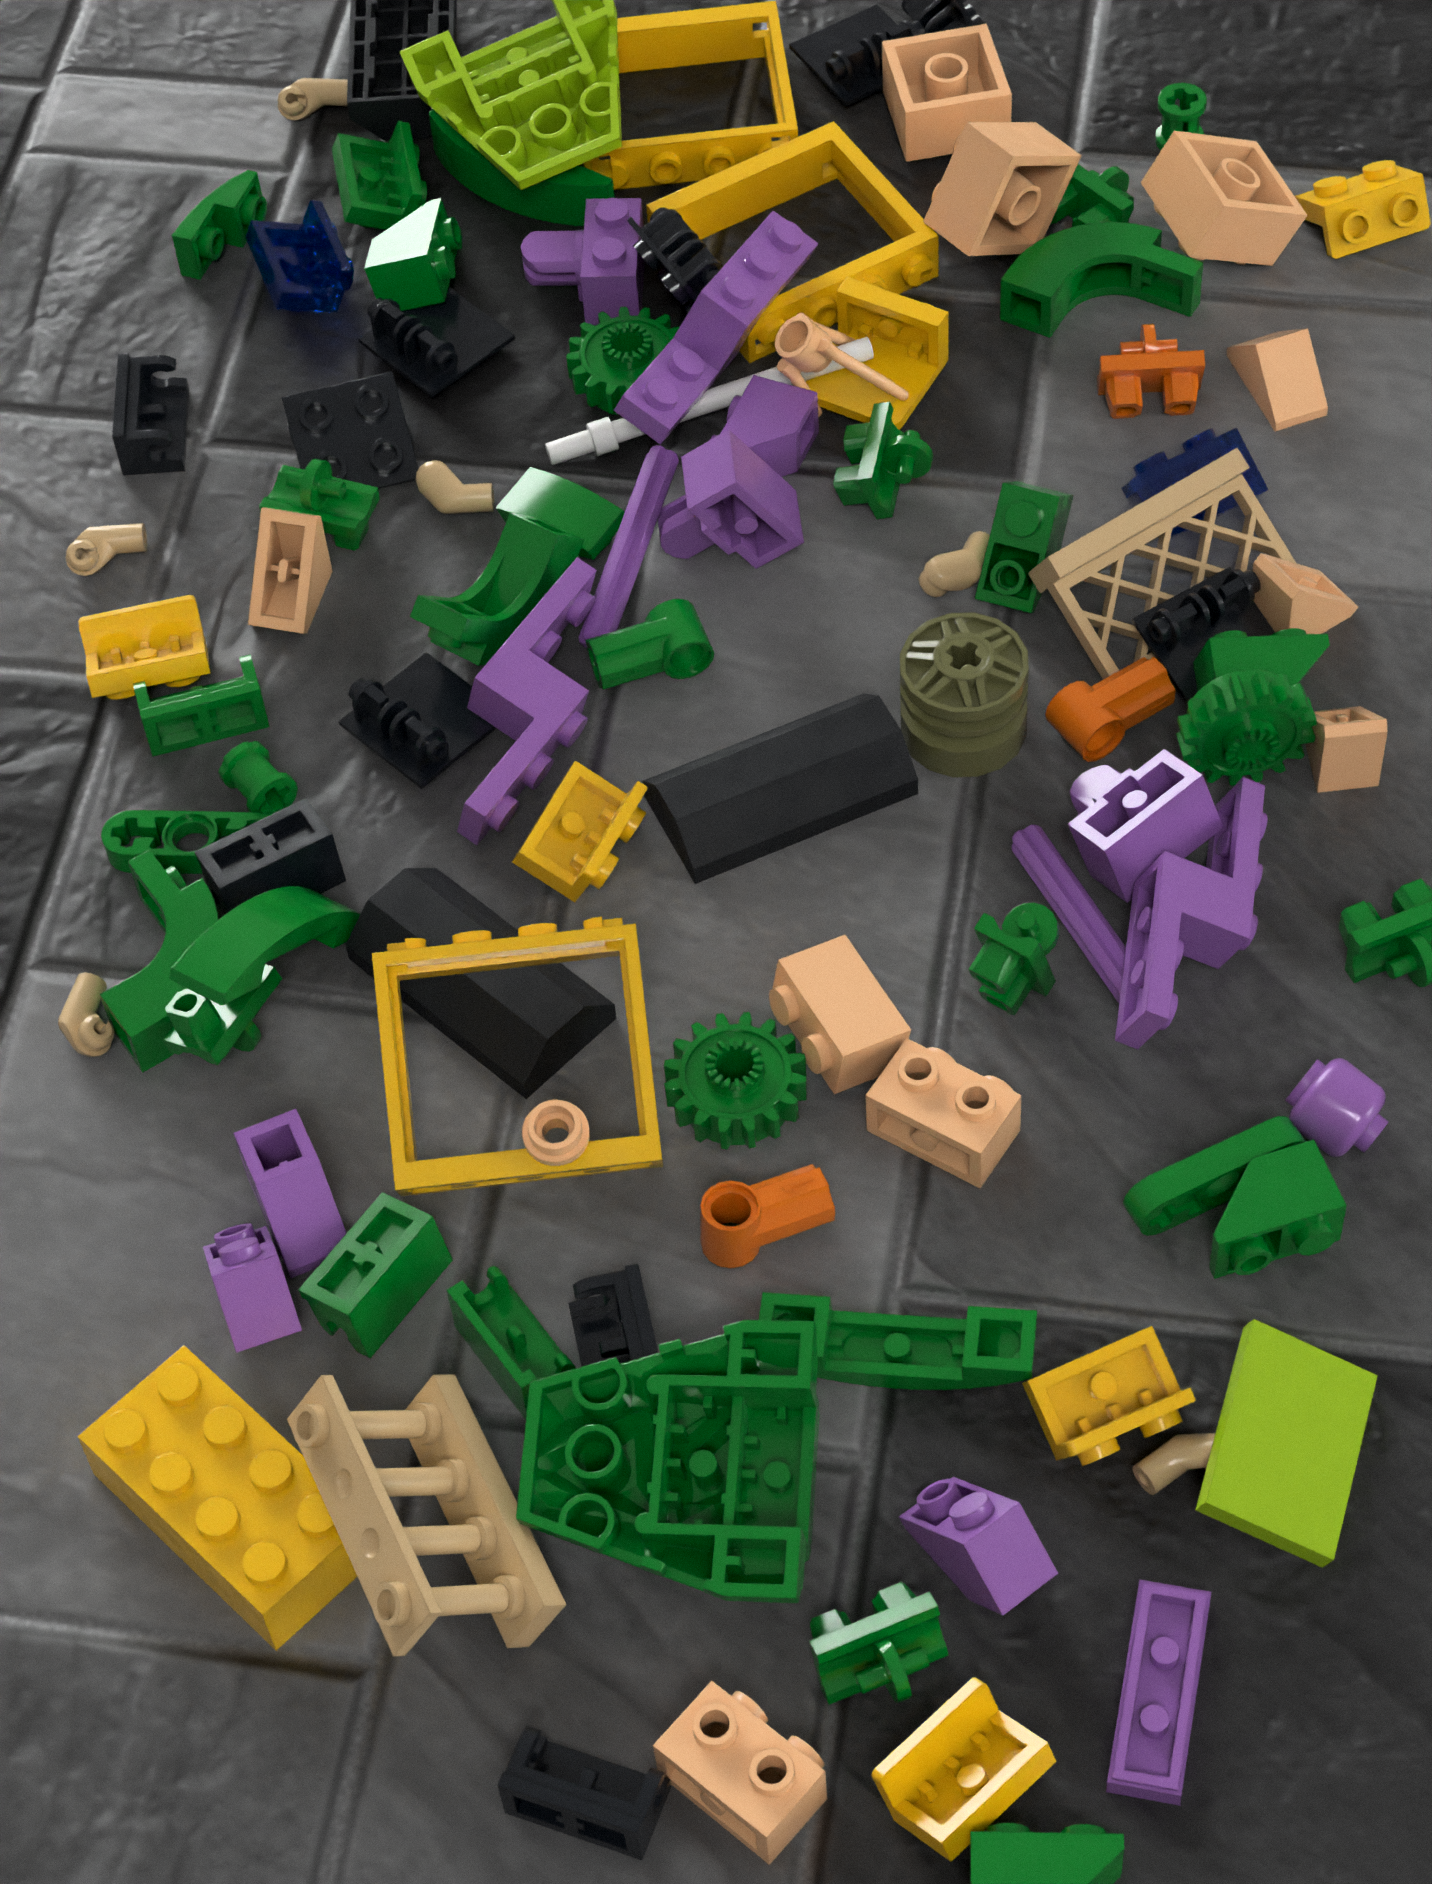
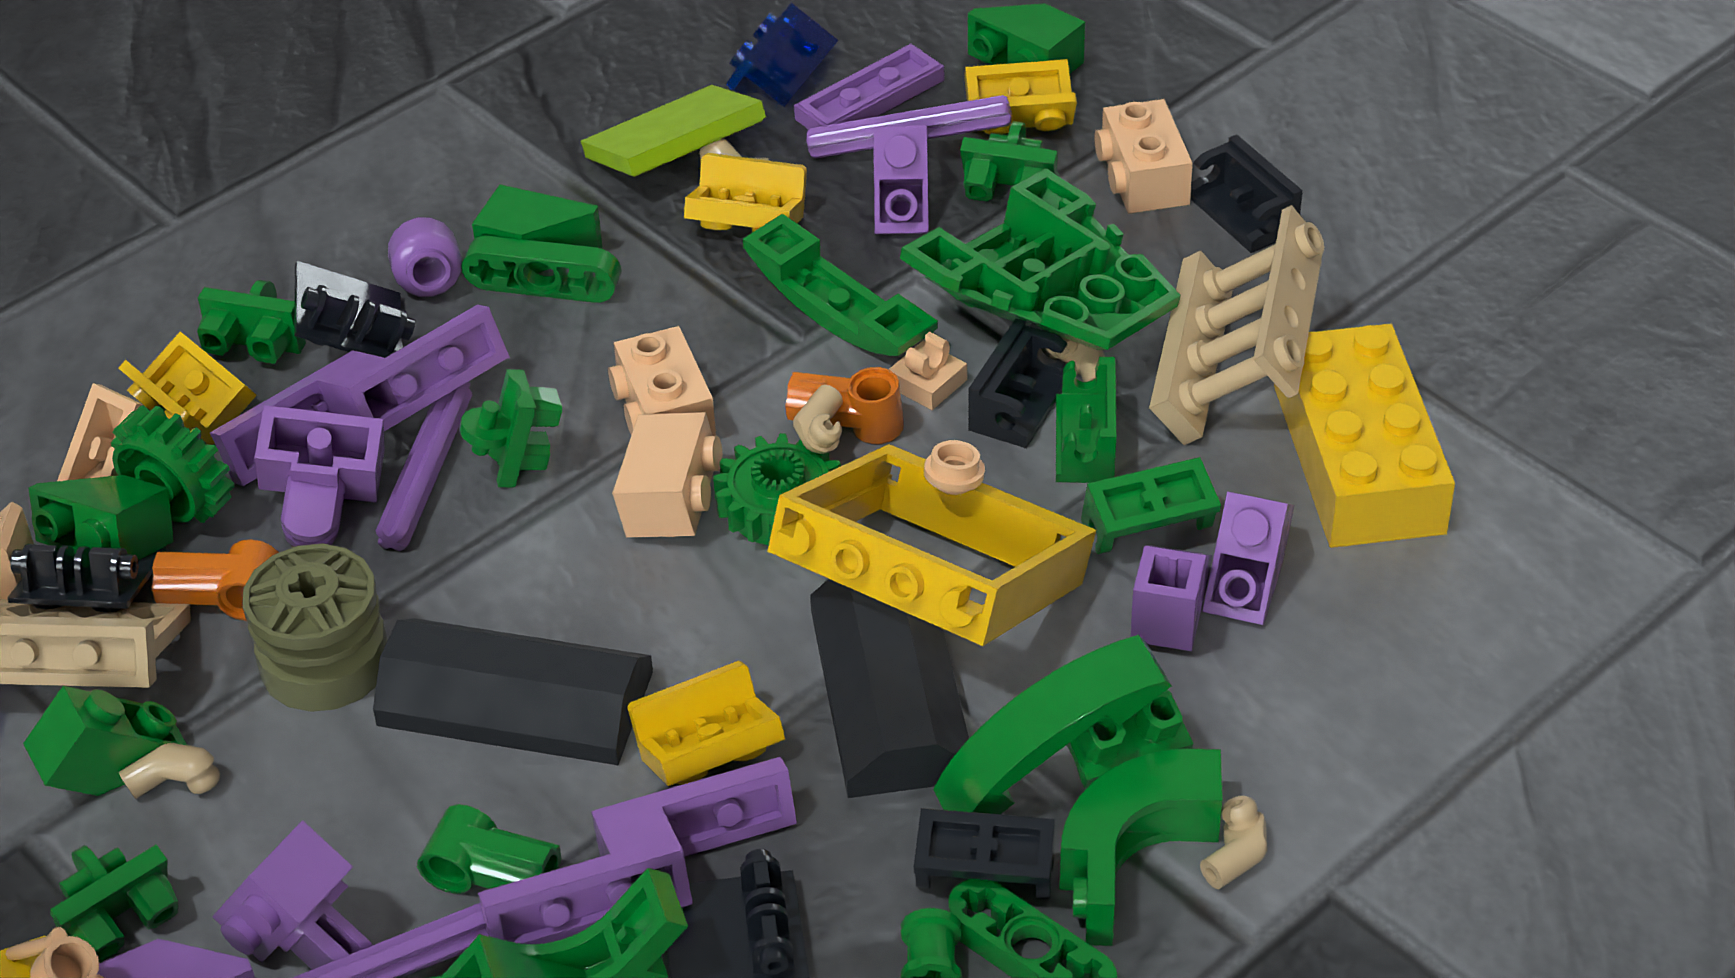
camera: 145 degrees left, 10 degrees down
(724, 1304) = (929, 372): none -> light nougat tile
(745, 1130) = (814, 423): none -> tan arm
(1032, 1617) = (940, 122): none -> medium lavender axle
(1304, 1660) = (784, 55): none -> clear blue bracket
(1321, 991) = (348, 313): none -> black hinge
(1362, 830) = (190, 385): none -> yellow bracket

